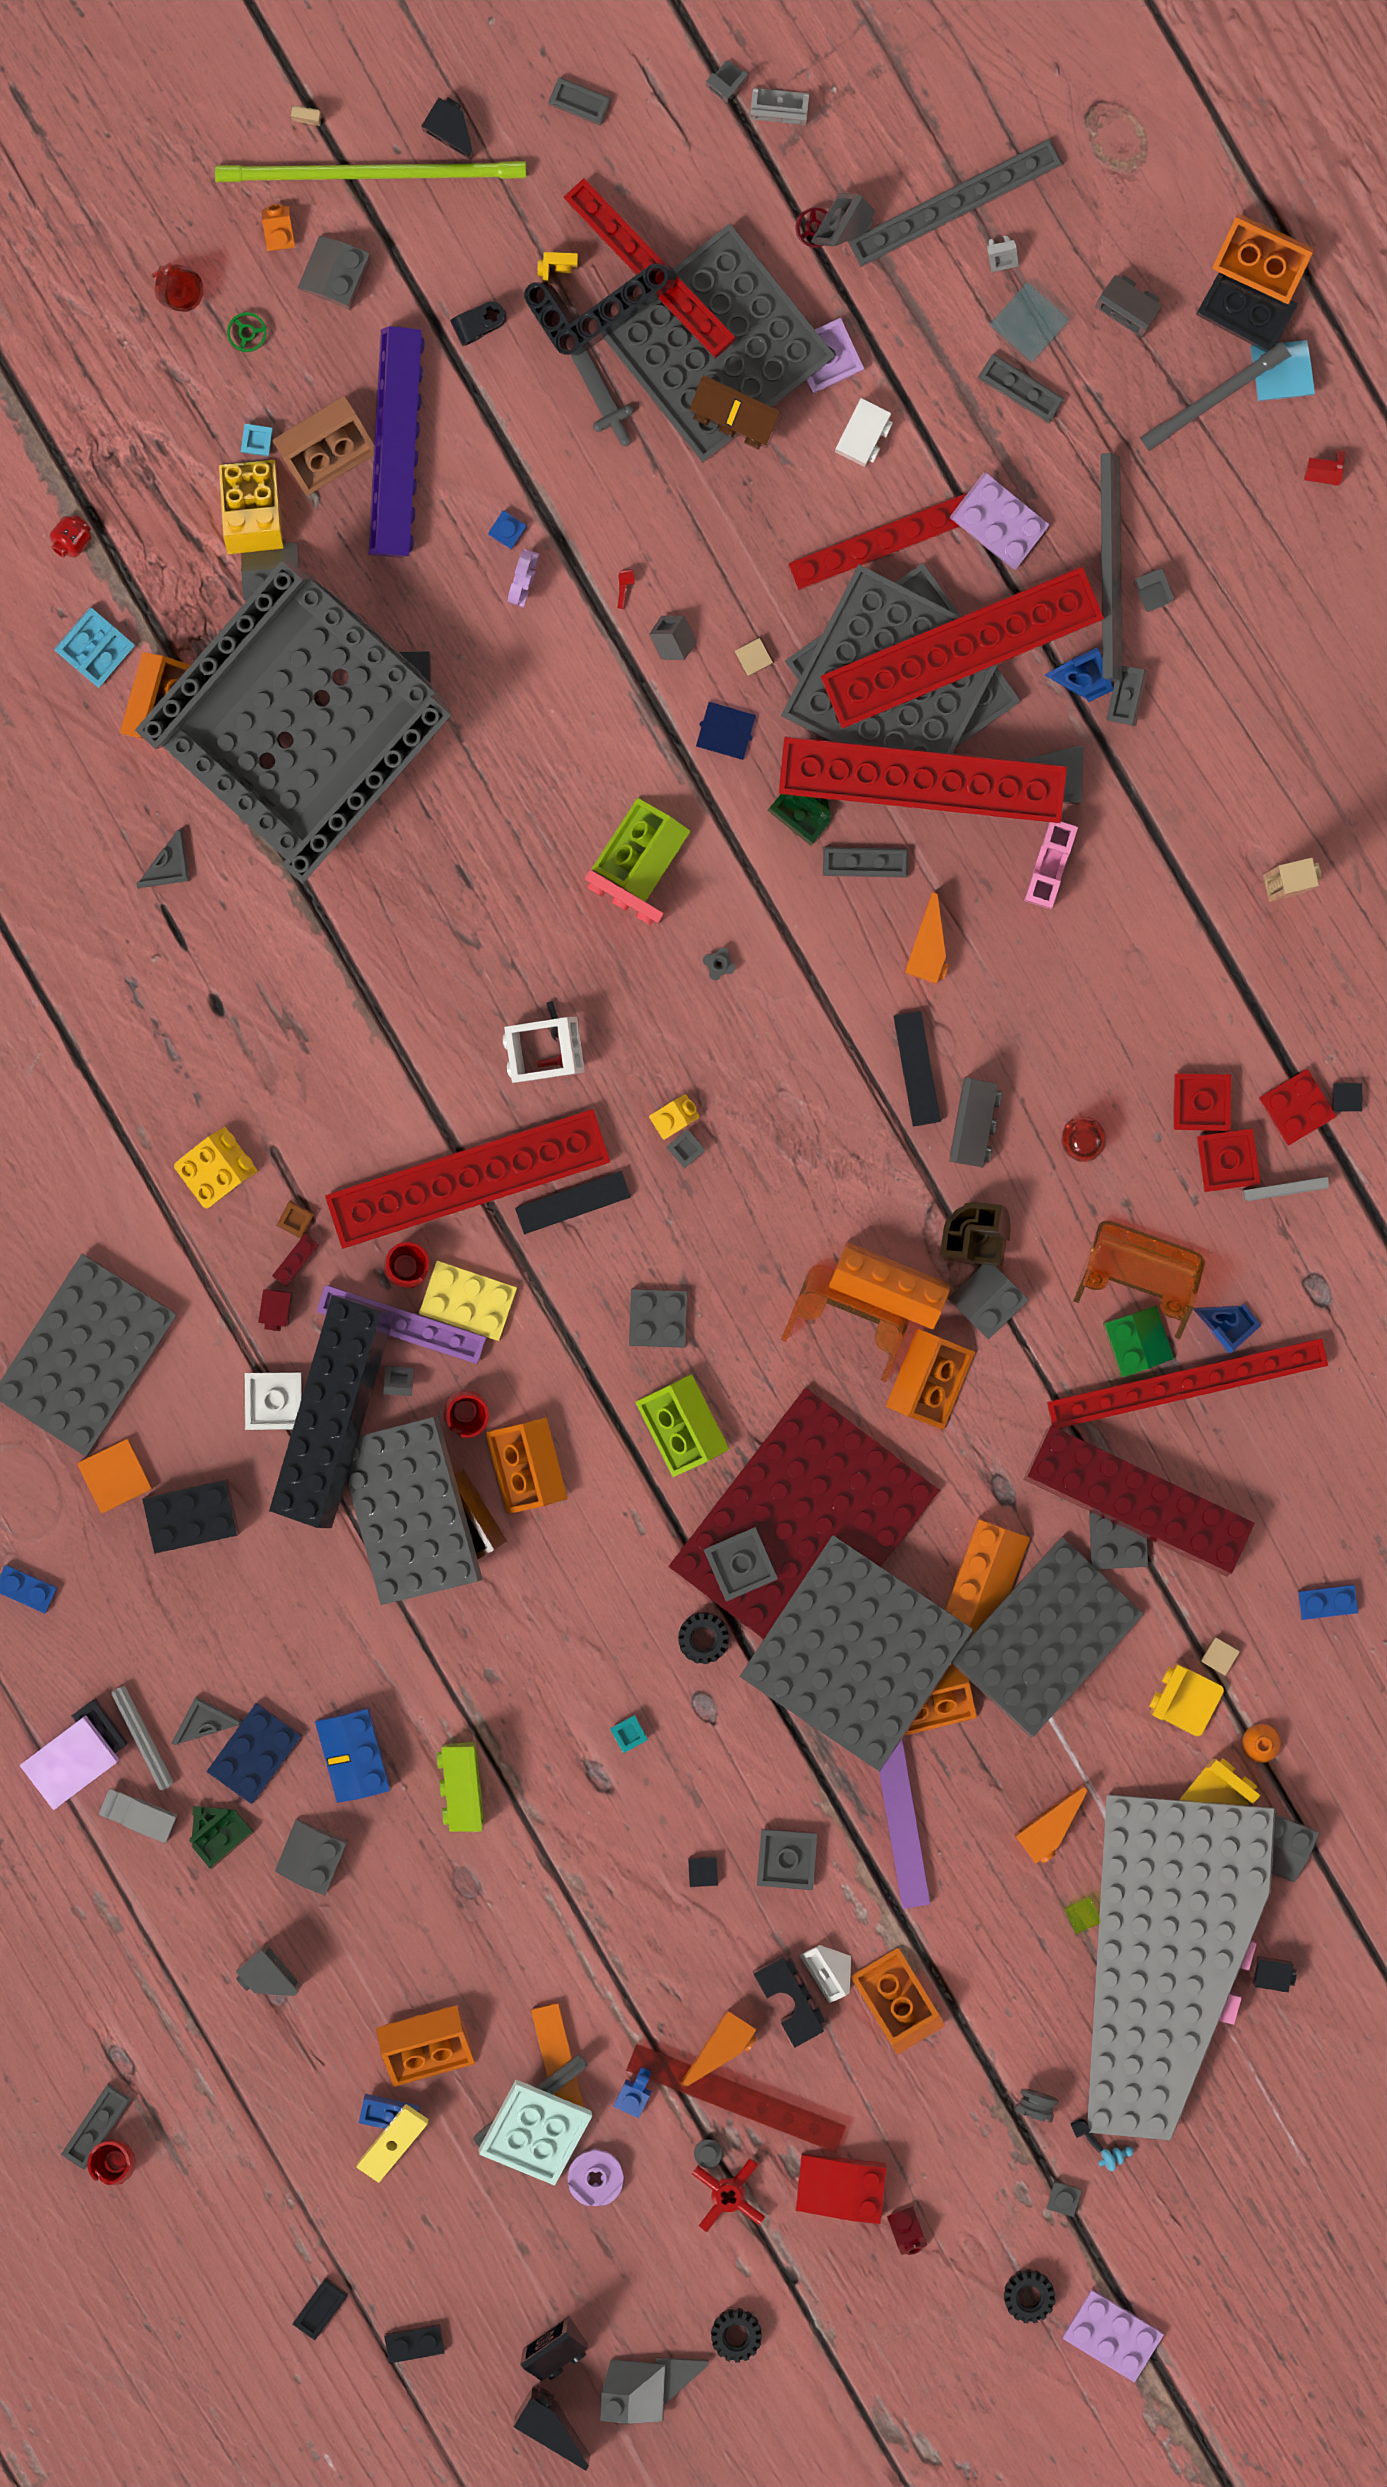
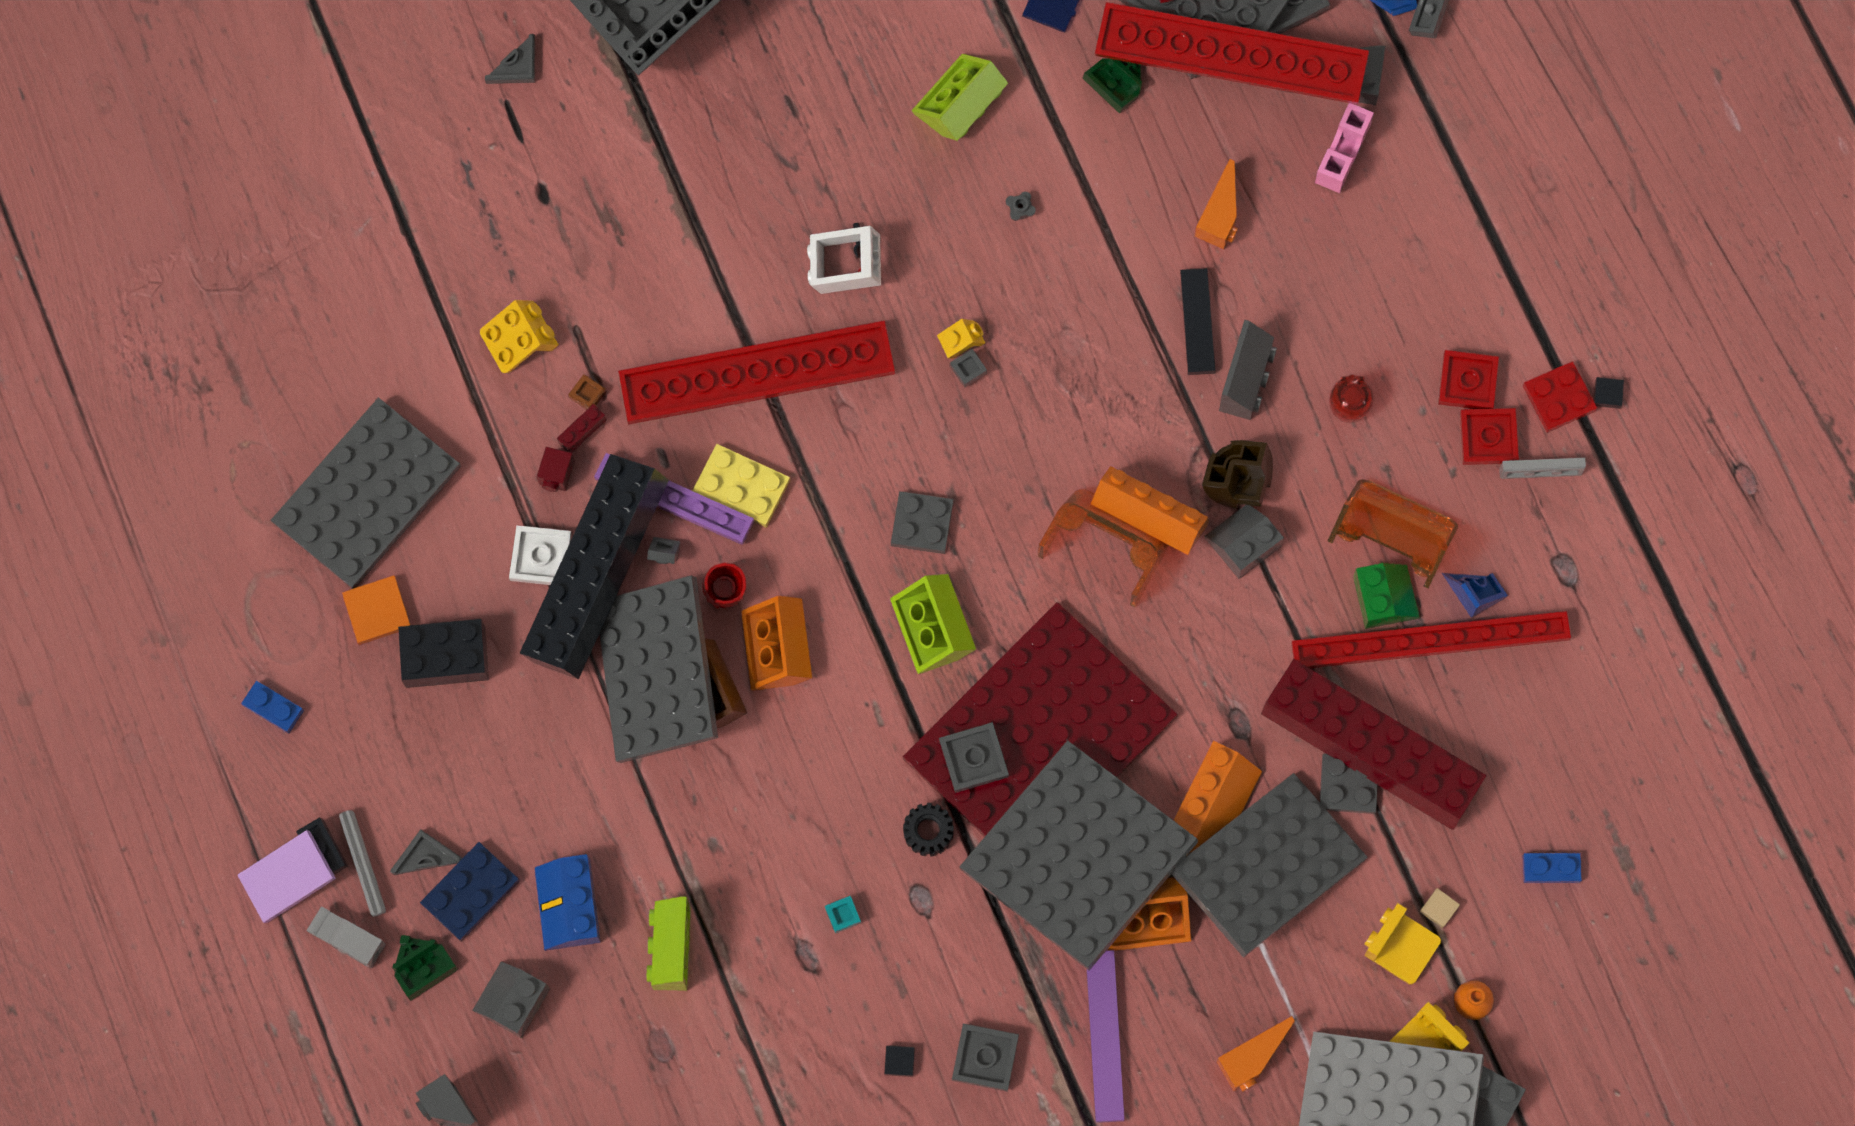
camera: 15 degrees right, 15 degrees down
(406, 1265) = (687, 440): red helmet -> none
(572, 1202) = (854, 406): black tile -> none
(623, 898) = (938, 132): coral plate -> none
(865, 862) = (1168, 132): dark grey tile -> none
(930, 1379) = (1179, 606): orange slope -> none
(1292, 879) = (1574, 165): tan brick -> none

